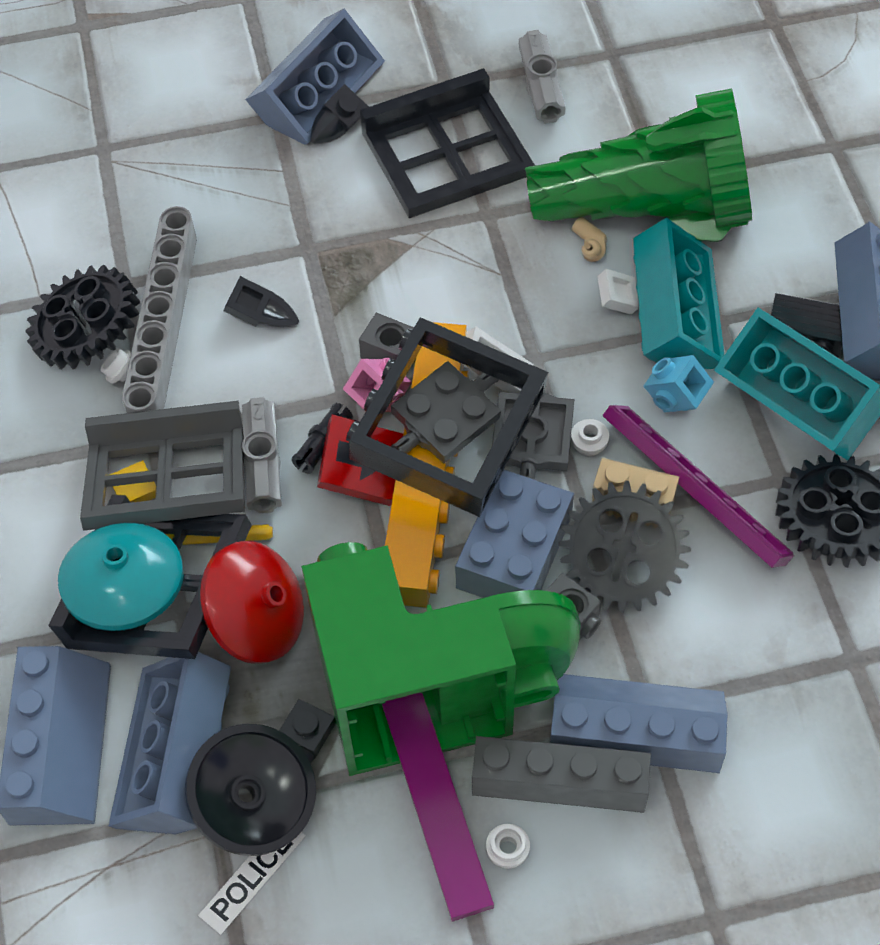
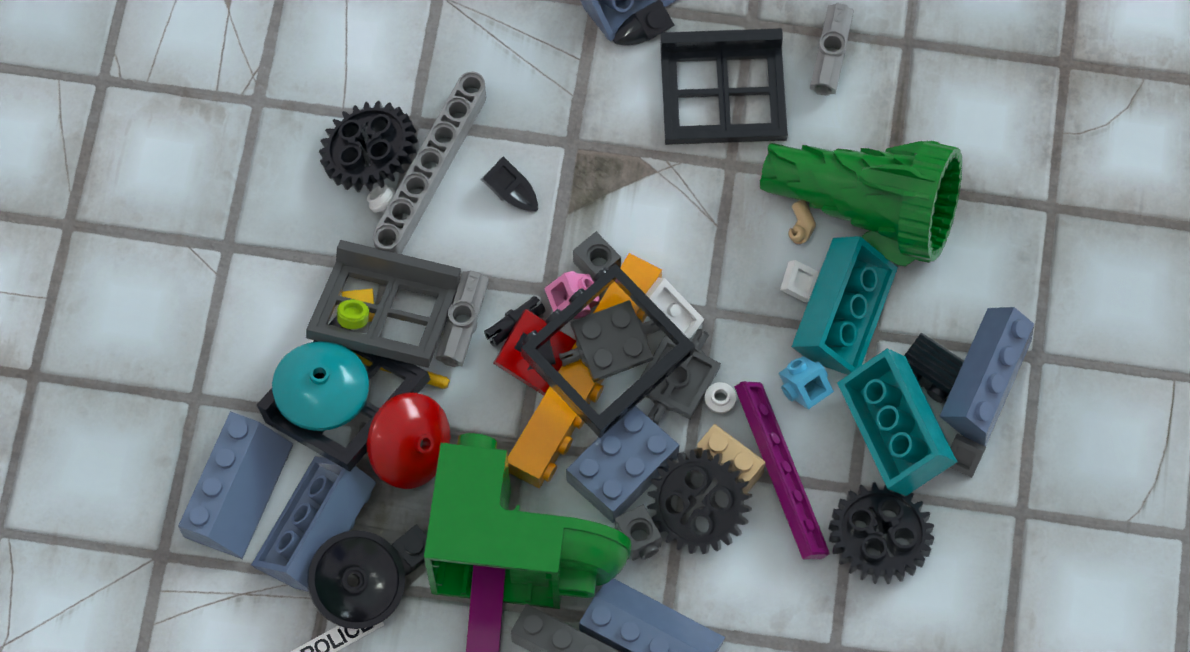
camera: 20 degrees right, 10 degrees up
(130, 484) = (352, 314): none -> lime tile

